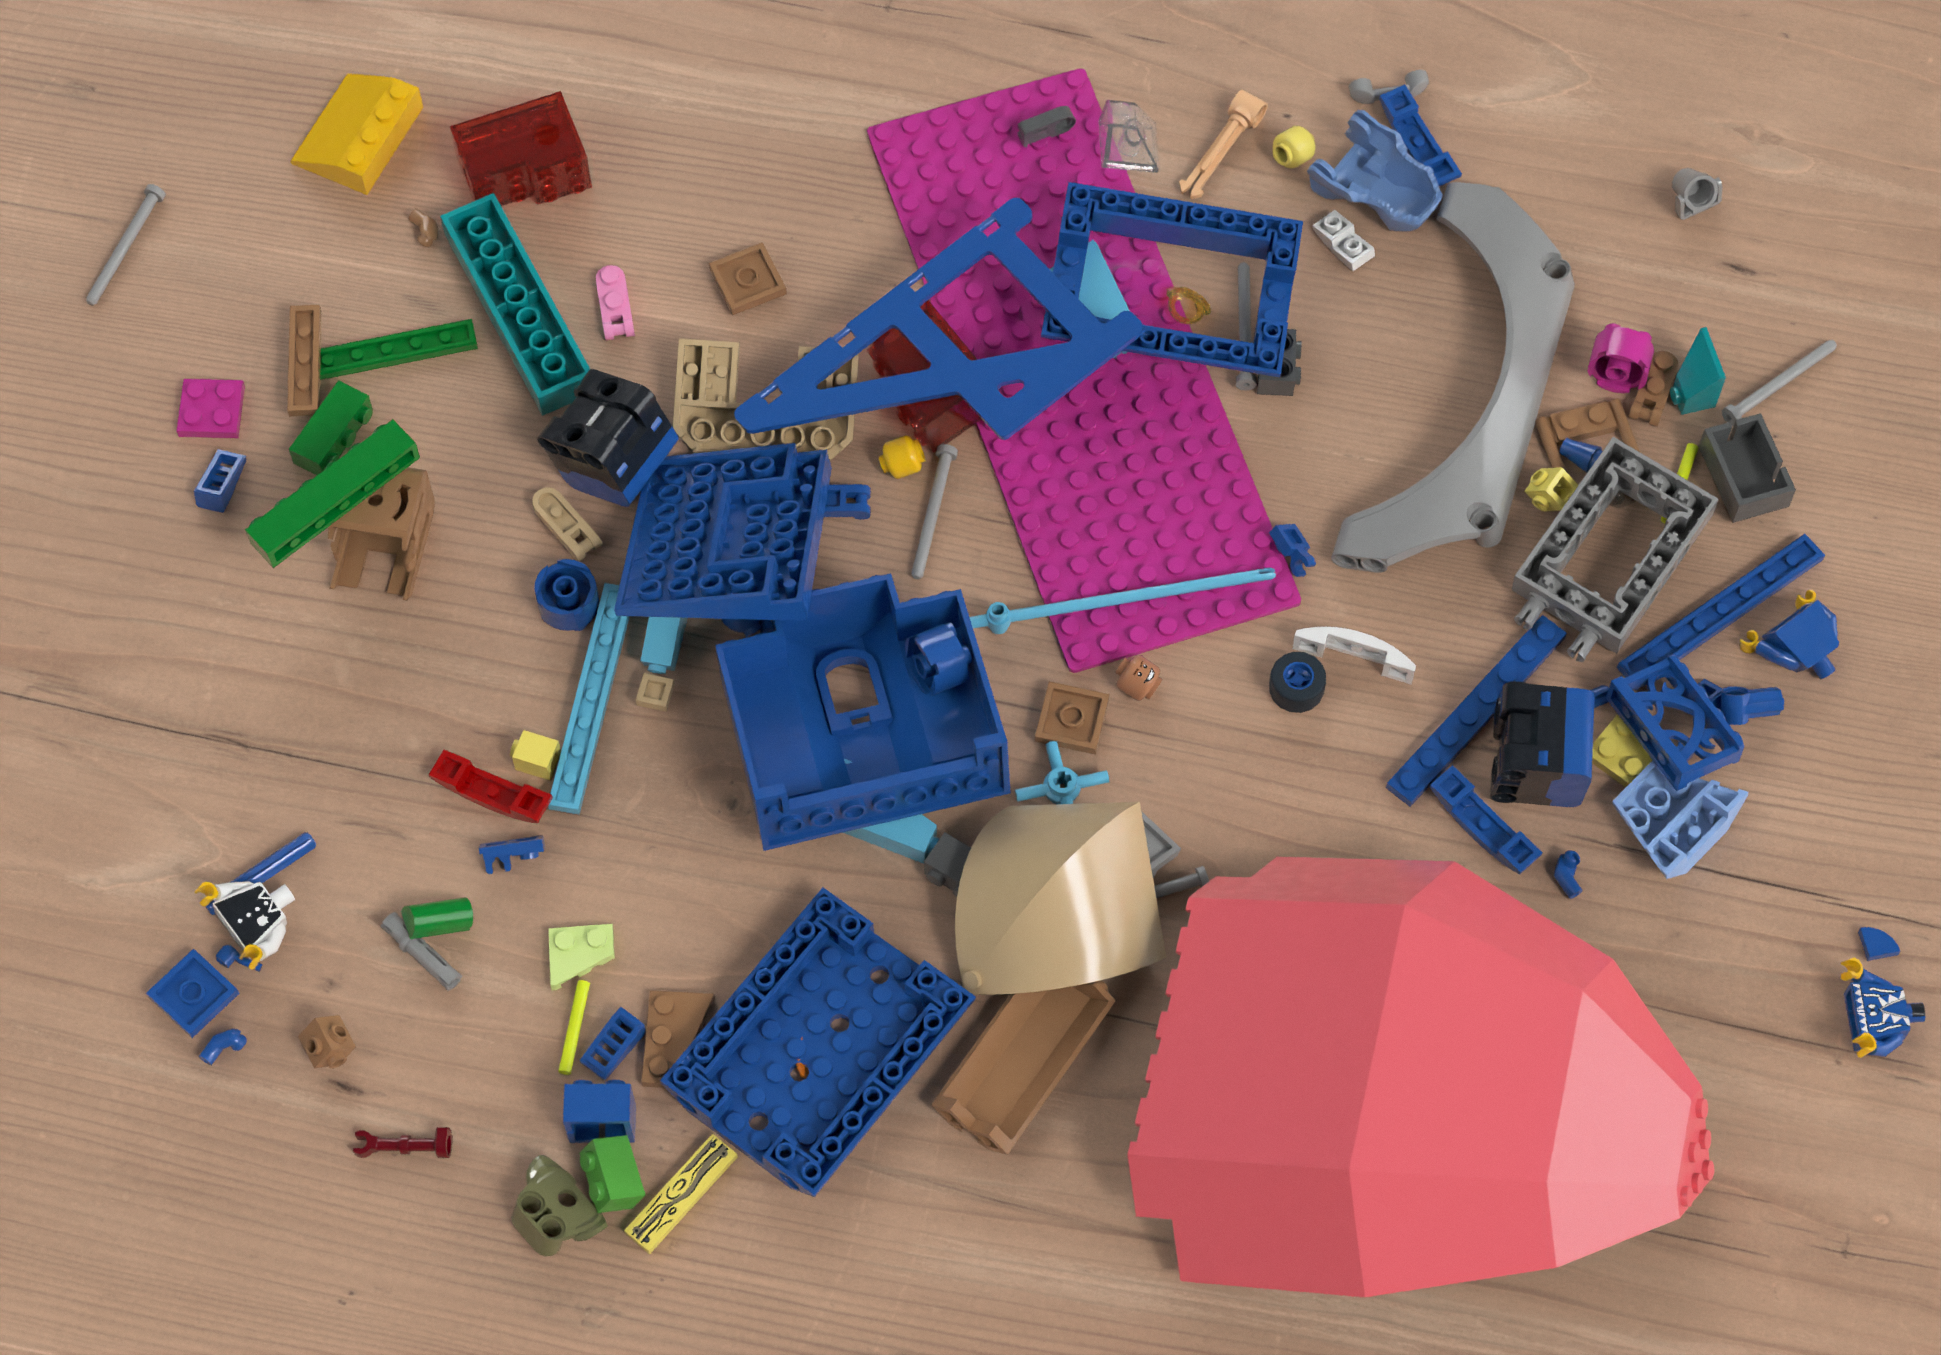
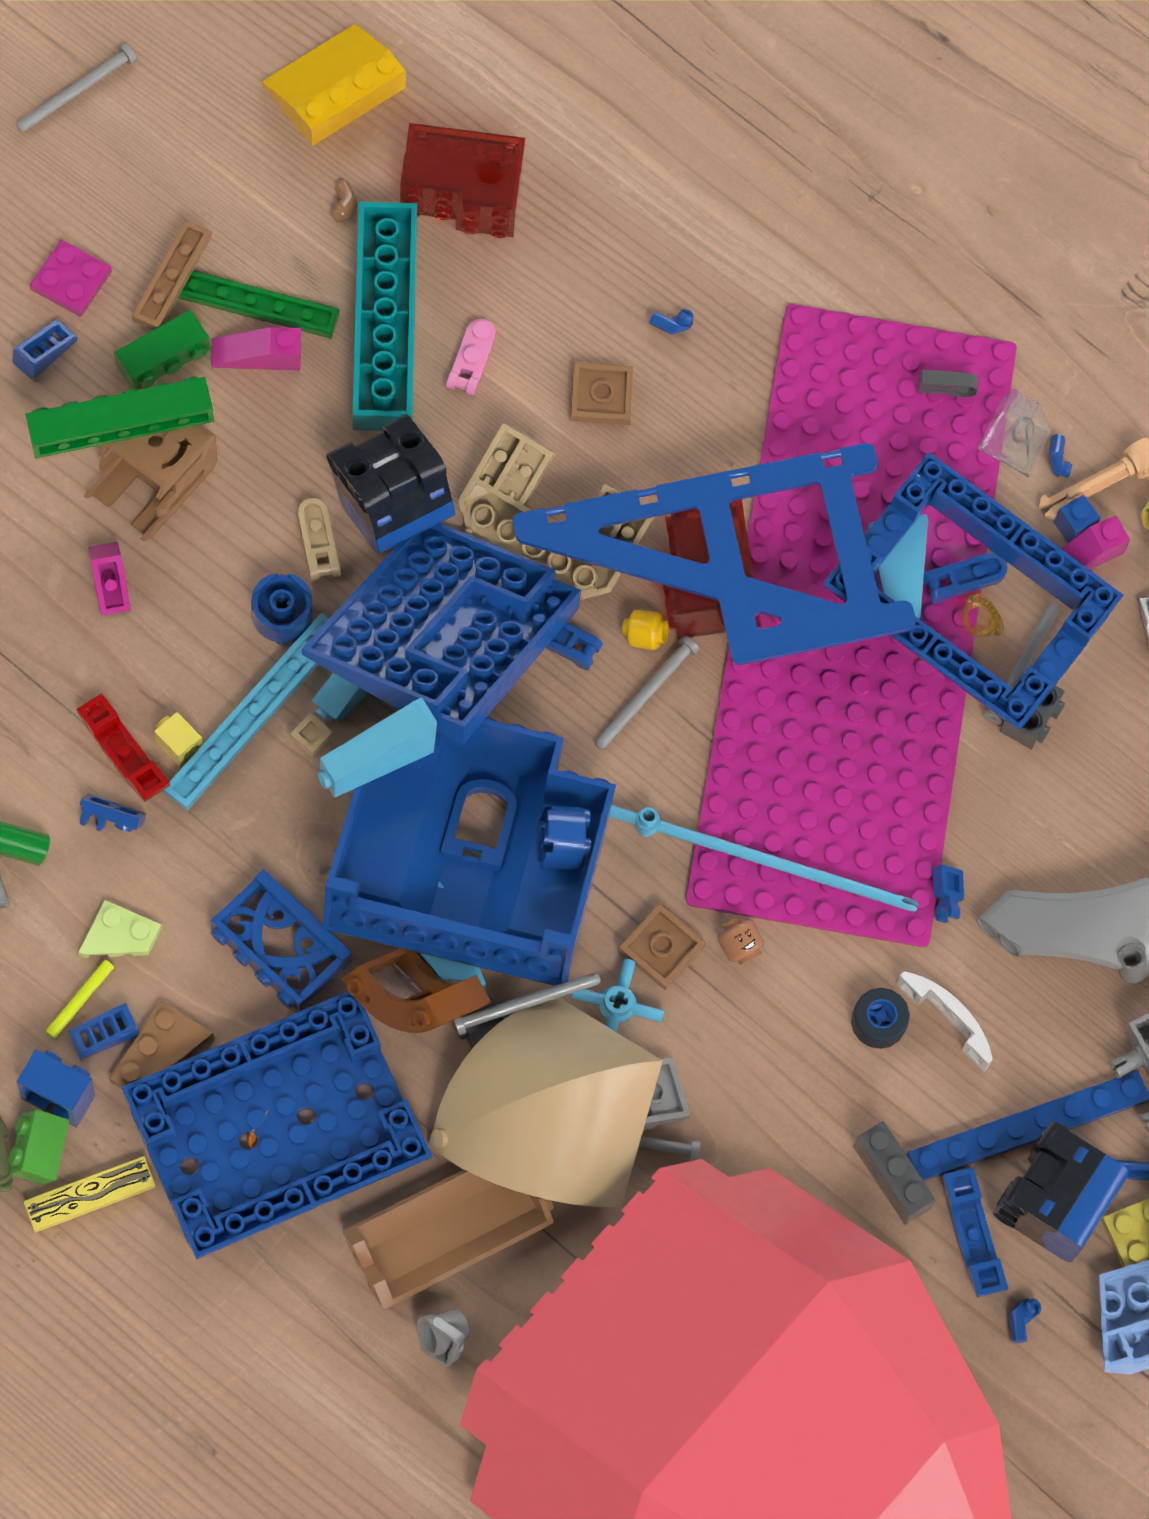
camera: 20 degrees right, 5 degrees up
(394, 647) = (109, 578): none -> dark pink slope
(419, 386) = (259, 349): none -> dark pink slope
(706, 847) = (278, 899): none -> blue fence
(737, 657) = (380, 749): none -> medium azure slope
(777, 191) = (673, 325): none -> blue arm
(876, 870) = (408, 995): none -> dark orange window
(936, 867) = (525, 1002): none -> light grey bar
(1071, 1147) = (441, 1333): none -> light grey piece
(1155, 276) = (965, 576): none -> blue plate
(1172, 142) = (1056, 452): none -> blue arm
(1221, 185) = (1076, 518): none -> blue brick
(1254, 191) = (1099, 543): none -> dark pink slope
(1386, 805) = (894, 1172): none -> dark grey brick

